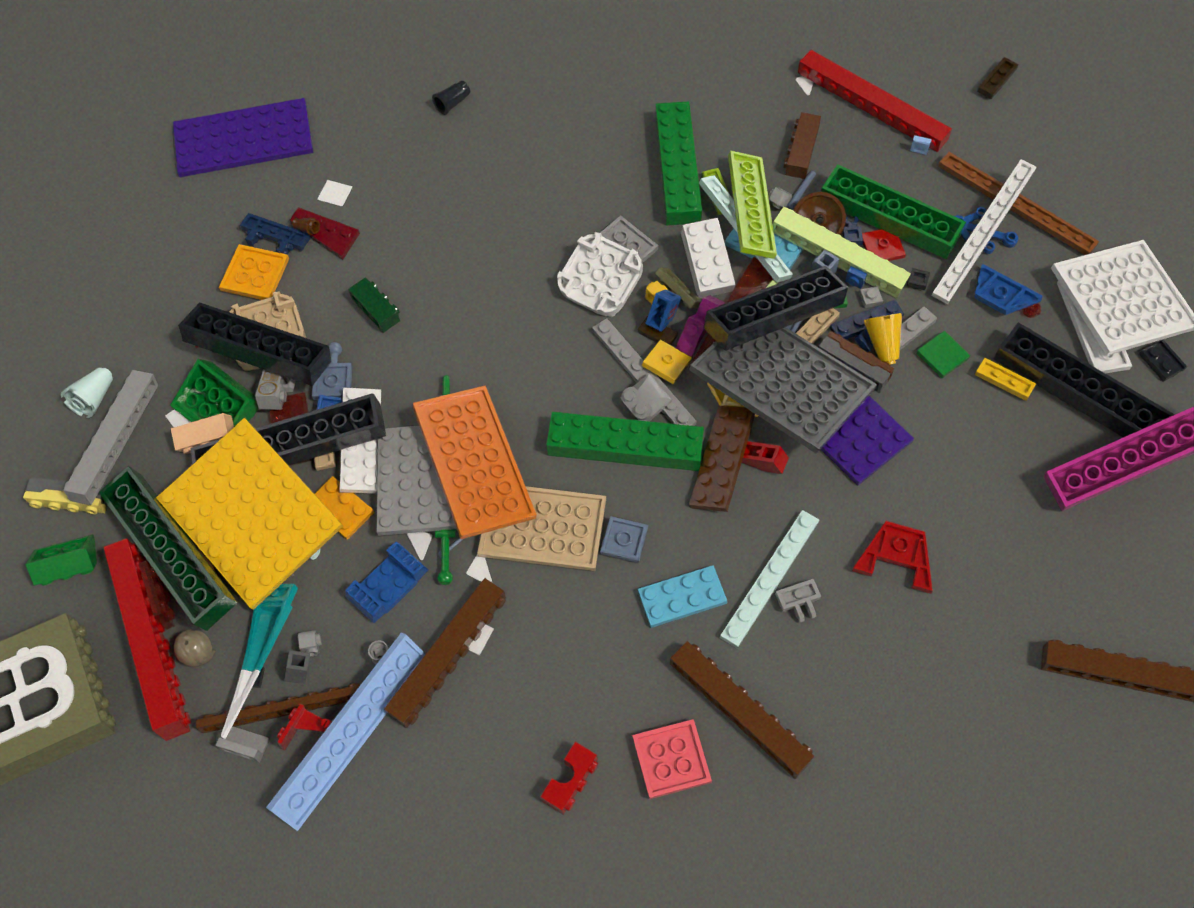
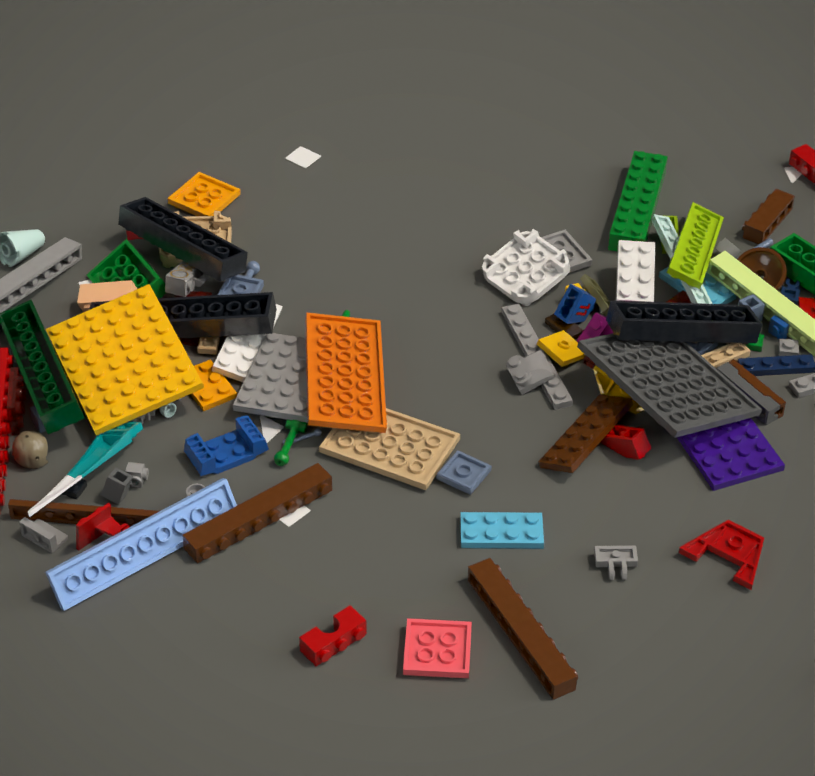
camera: 15 degrees right, 20 degrees down
(242, 137) = (236, 98): dark purple plate -> none
(260, 228) = (242, 175): dark blue hinge -> none
(308, 225) = (267, 170): reddish brown cone -> none
(332, 234) = (284, 183): dark red wing -> none
(374, 304) = (304, 243): dark green brick -> none
(450, 97) = (440, 108): black plant -> none
(479, 569) = (317, 458): white sticker -> none
(625, 441) = (497, 397): green brick -> none
(769, 579) = (595, 536): light aqua plate -> none
(864, 340) = (769, 377): dark blue plate -> none
(885, 336) = (787, 373): yellow cone -> none

